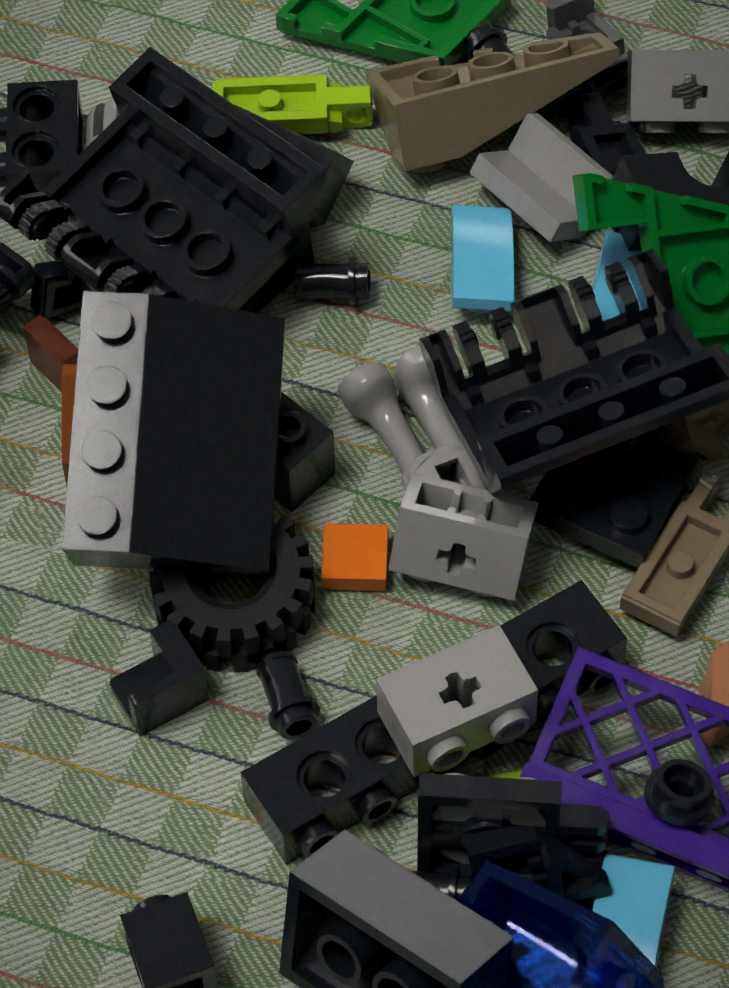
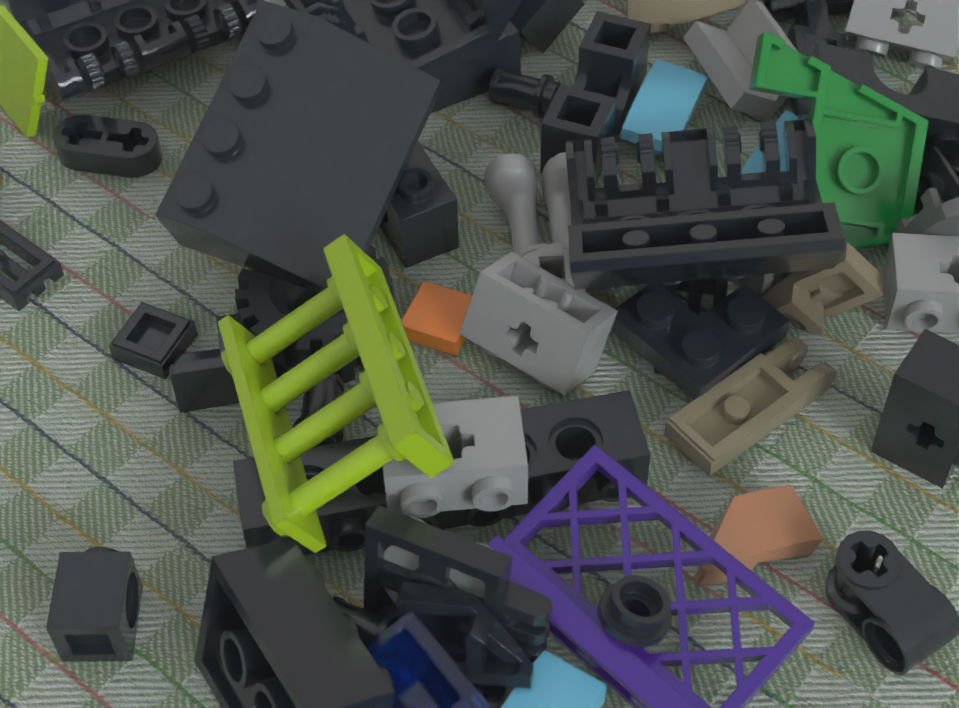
camera: 20 degrees right, 5 degrees down
(78, 670) = (153, 340): none -> black tile
(381, 655) = (389, 382): none -> lime fence
(412, 263) = (606, 84): none -> black arch

